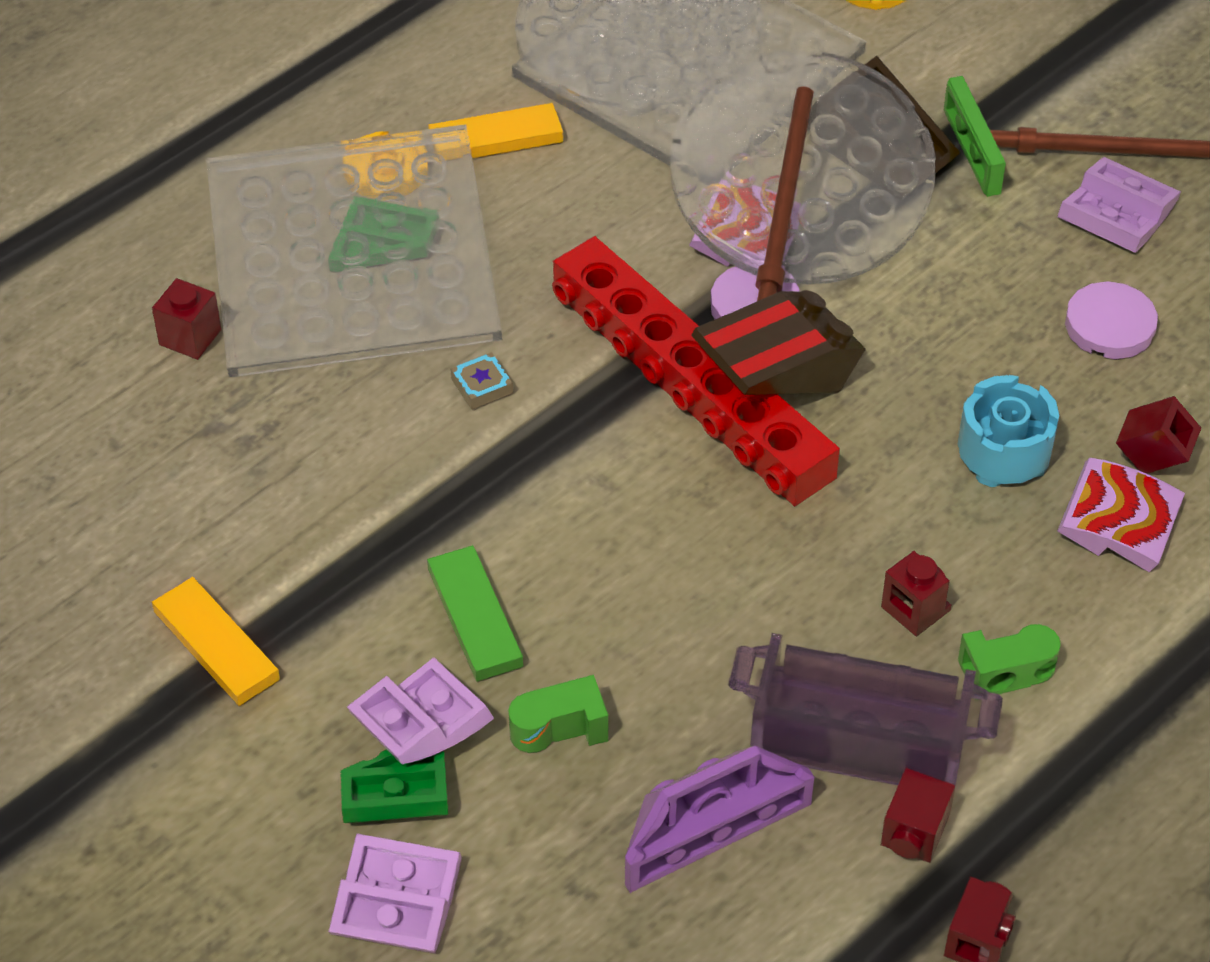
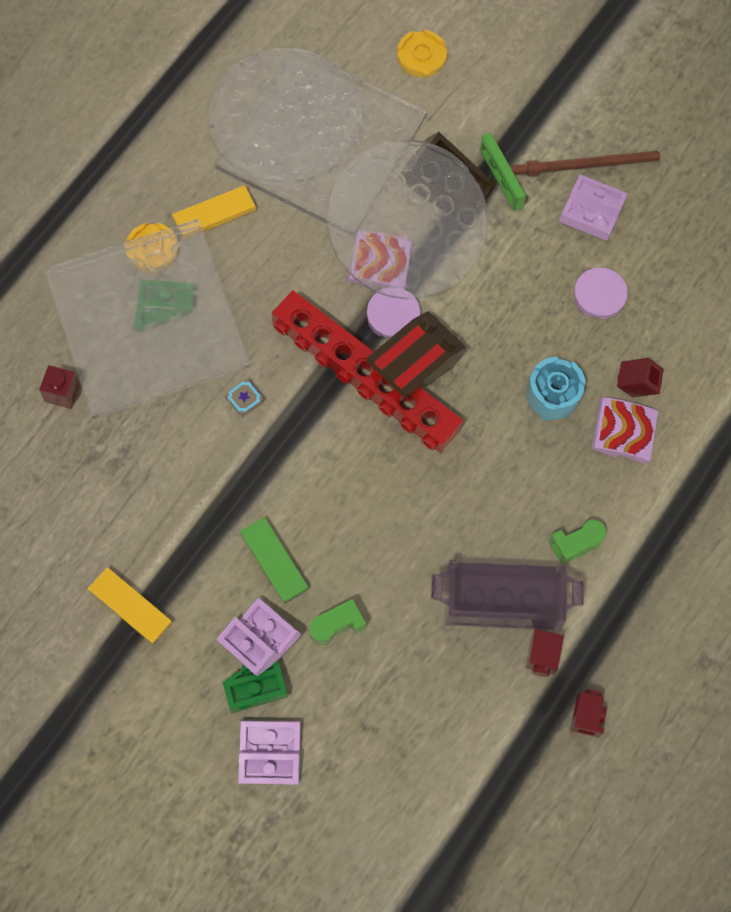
camera: 15 degrees left, 20 degrees up
(711, 810) = (431, 669): medium lavender wedge -> none
(771, 274) = (402, 302): copper bar -> none
(924, 584) = (520, 507): dark red brick -> none

